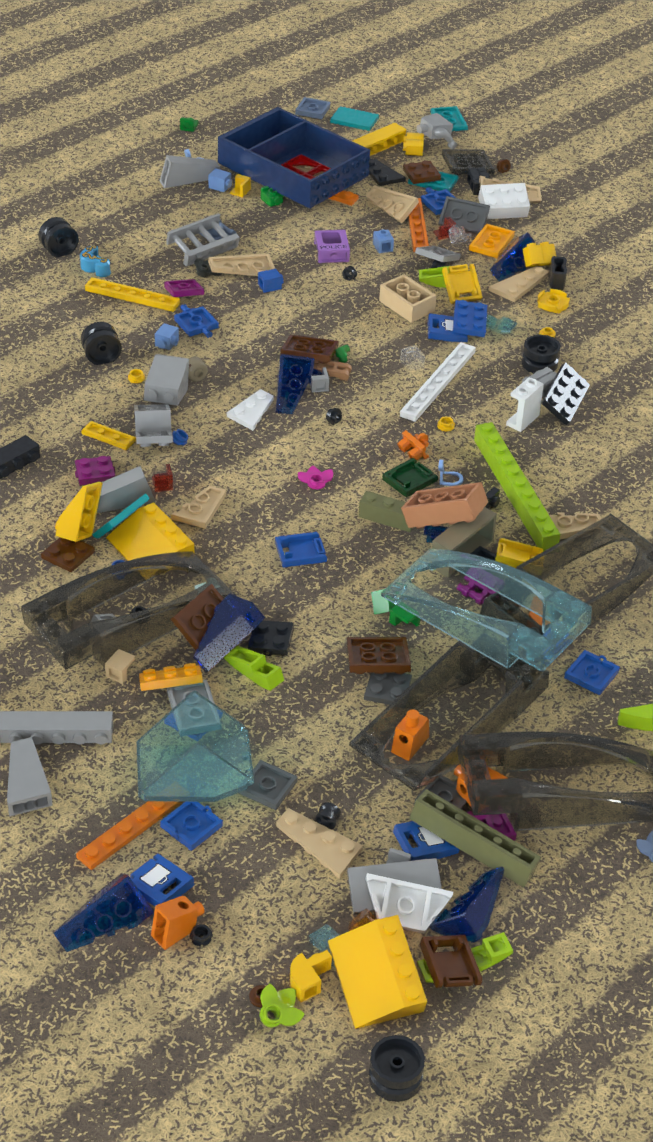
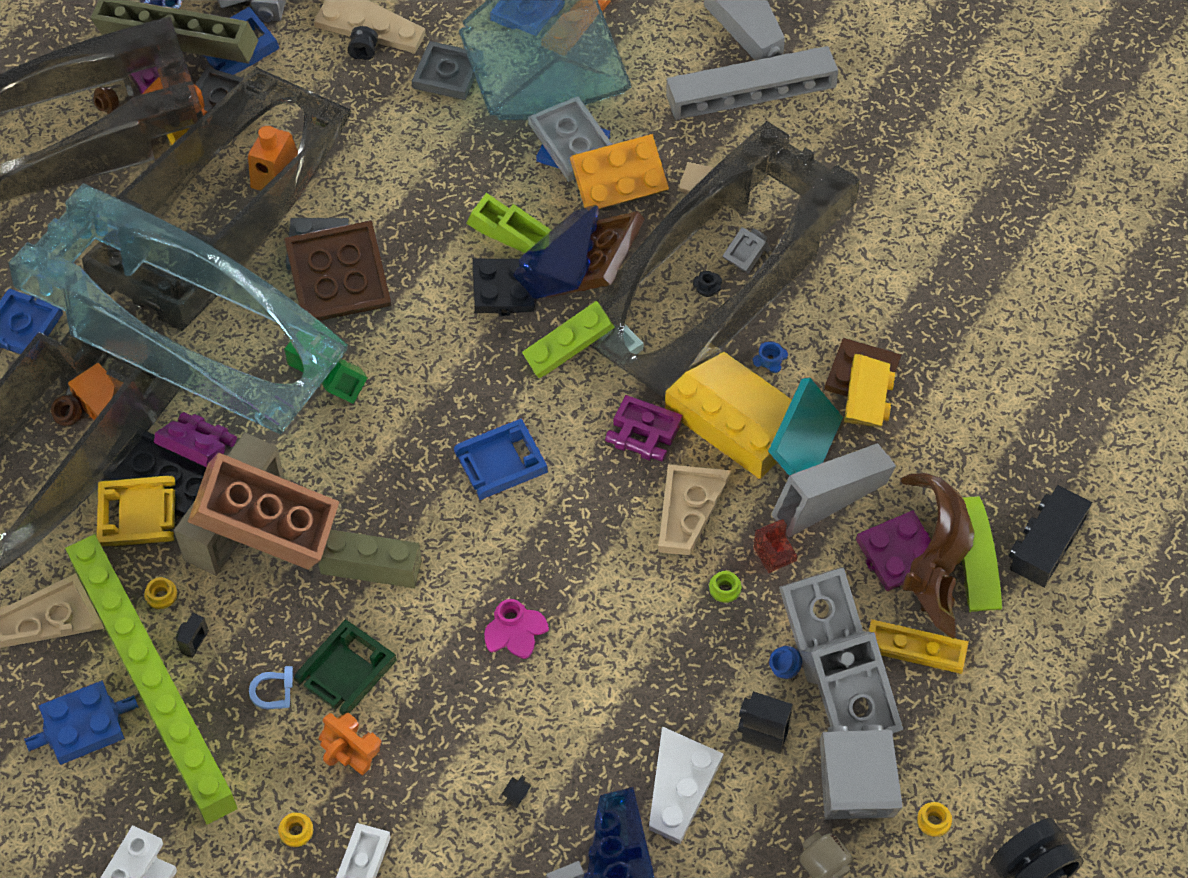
camera: 170 degrees right, 15 degrees up
(52, 465) = (980, 563): none -> lime slope
(84, 447) = (948, 547): none -> reddish brown piece
(196, 472) = (727, 578): none -> lime plate
(202, 407) = (765, 721): none -> black brick
(212, 547) = (646, 420): none -> magenta plate
(242, 588) = (568, 339): none -> lime plate
(507, 523) = (157, 585): none -> yellow plate
(553, 480) = (81, 722): none -> blue plate

